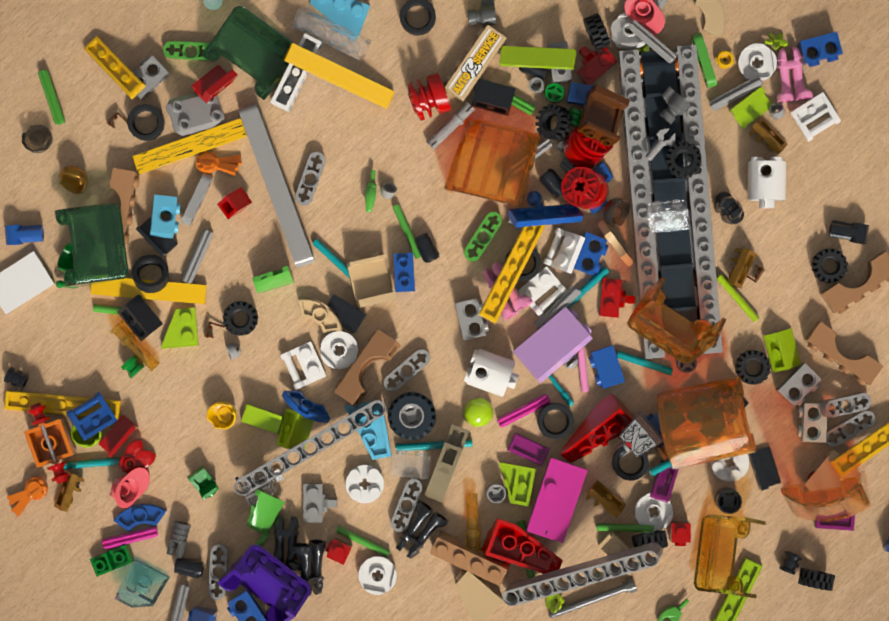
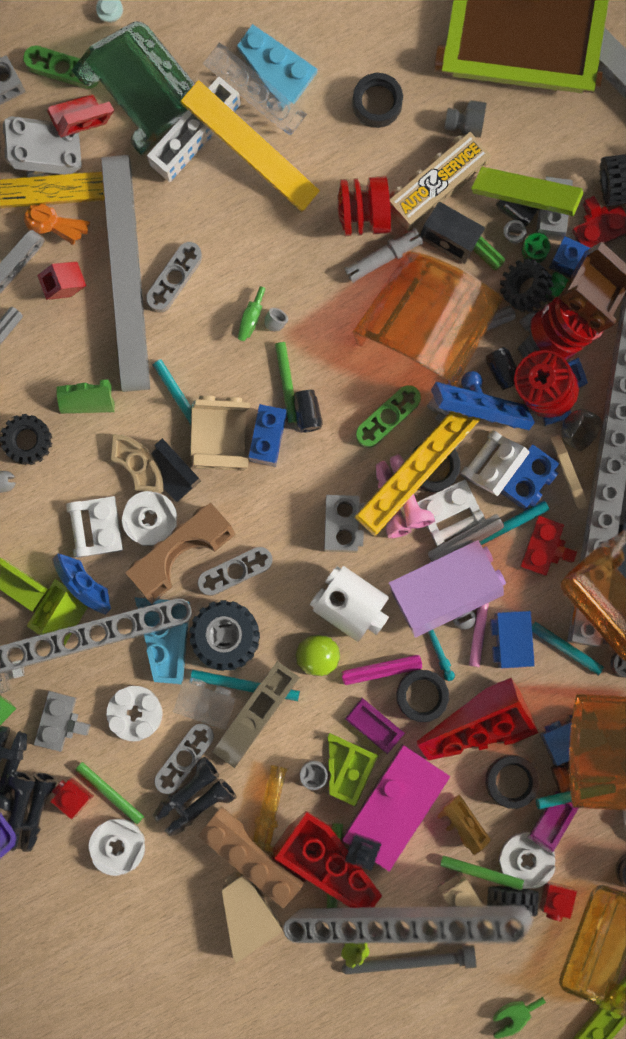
camera: 15 degrees right, 5 degrees down
(542, 534) = (363, 851): none -> black tile
(638, 436) = (535, 748): torso -> none

